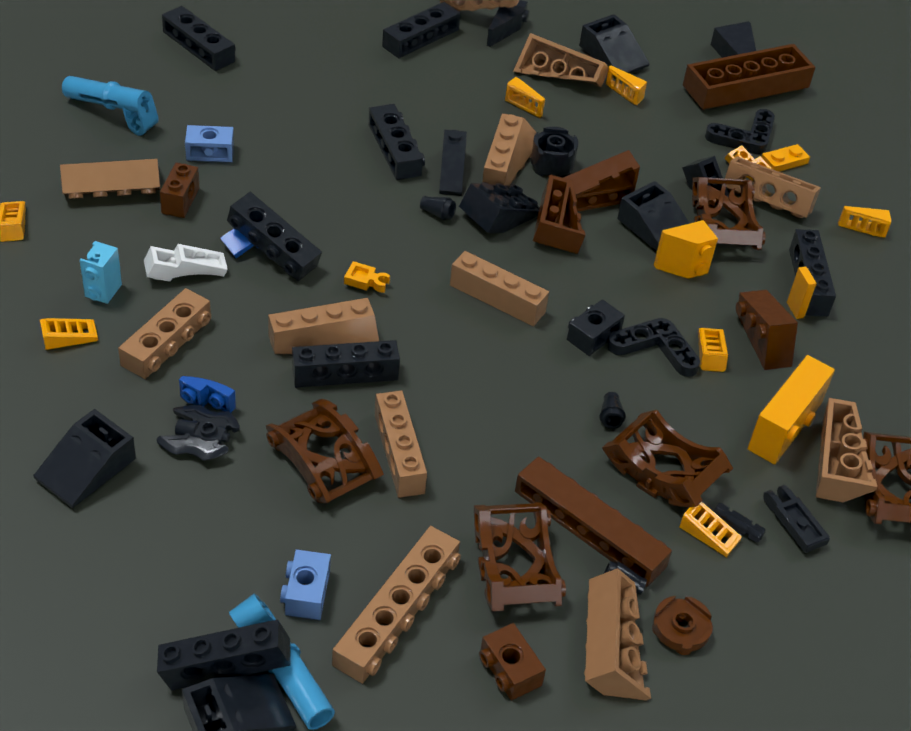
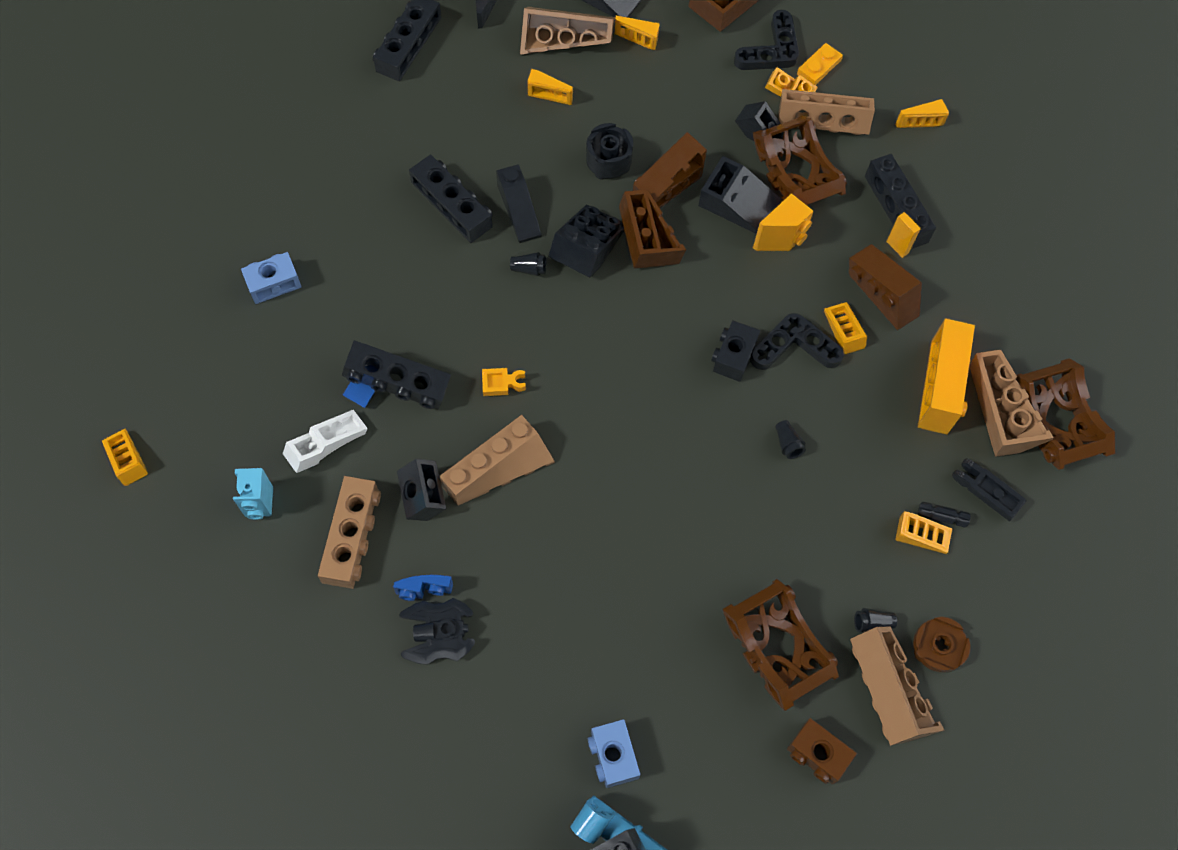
camera: 20 degrees left, 20 degrees up
(59, 332) = (252, 582): light orange slope -> none
(86, 458) = (351, 713): black slope -> none
(110, 177) = (197, 366): medium nougat wedge -> none
(112, 95) = (177, 265): dark azure piece -> none
(179, 190) = (273, 351): reddish brown brick -> none
(198, 38) = (188, 140): black brick -> none
(247, 323) = (421, 490): none -> black brick
(325, 422) = (599, 601): reddish brown fence -> none
(345, 363) = (533, 495): black brick -> none
(360, 661) = (684, 808): medium nougat brick -> none
(400, 444) = (624, 564): medium nougat brick -> none
(499, 288) = (620, 340): medium nougat wedge -> none
(509, 150) = (565, 159): medium nougat wedge -> none
(593, 520) = (825, 571): reddish brown brick -> none
(682, 488) = (887, 508): reddish brown fence -> none

